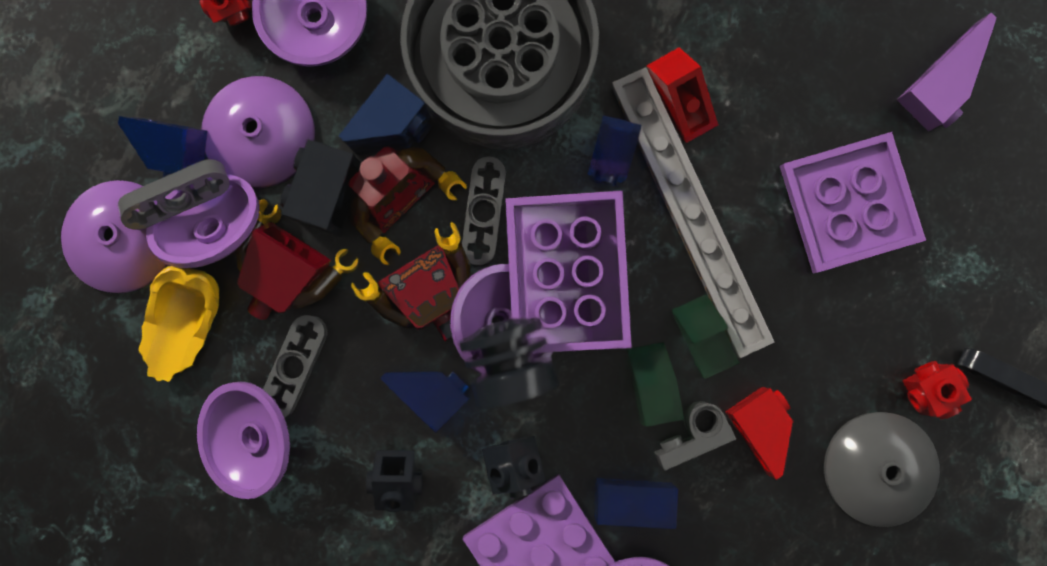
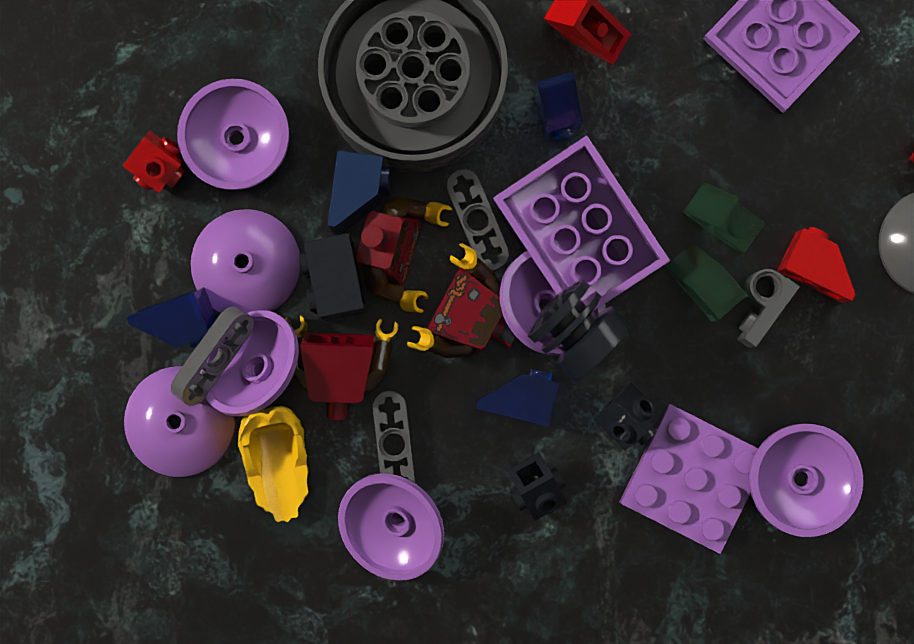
camera: 30 degrees left, 0 degrees up
(636, 503) = (747, 389): clear blue brick -> none
(692, 213) = (653, 120): light grey plate -> none

